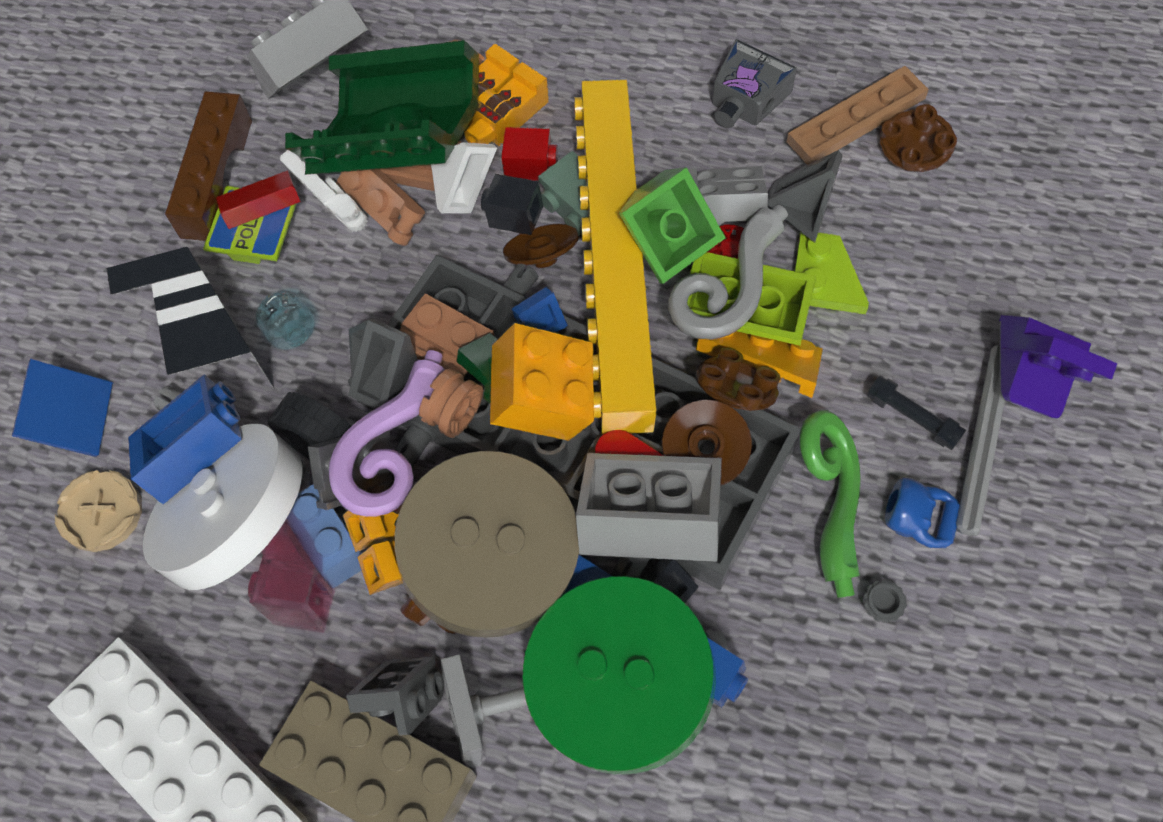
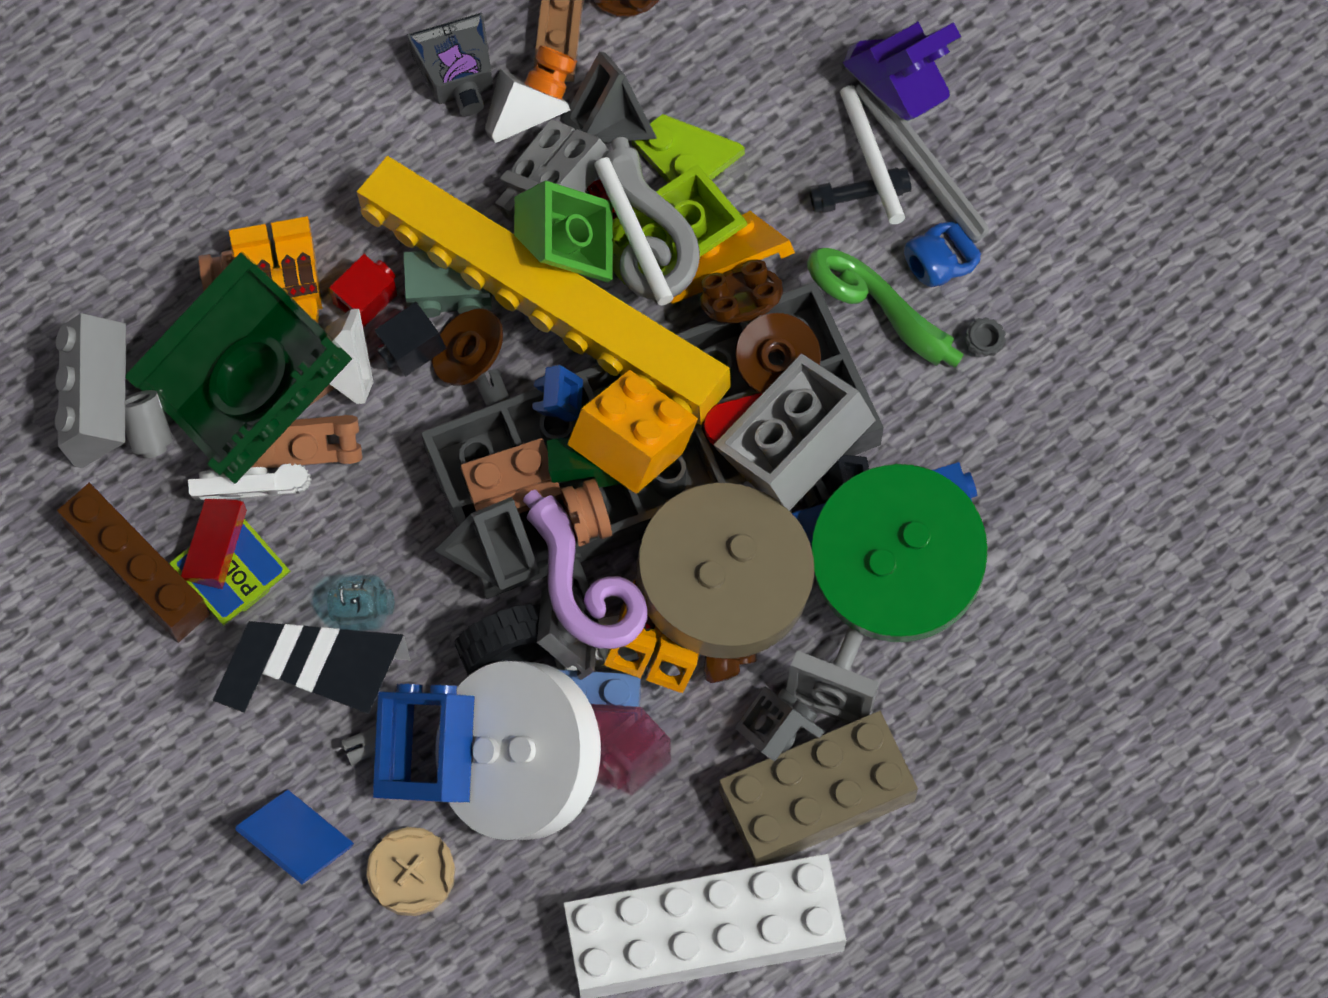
camera: 55 degrees left, 5 degrees up
(316, 100) = (146, 424): none -> light grey brick
(712, 267) = (633, 231): none -> white bar
(755, 142) = (519, 107): none -> white slope
(795, 137) = (546, 80): none -> orange wheel
(950, 399) = (872, 155): none -> white bar

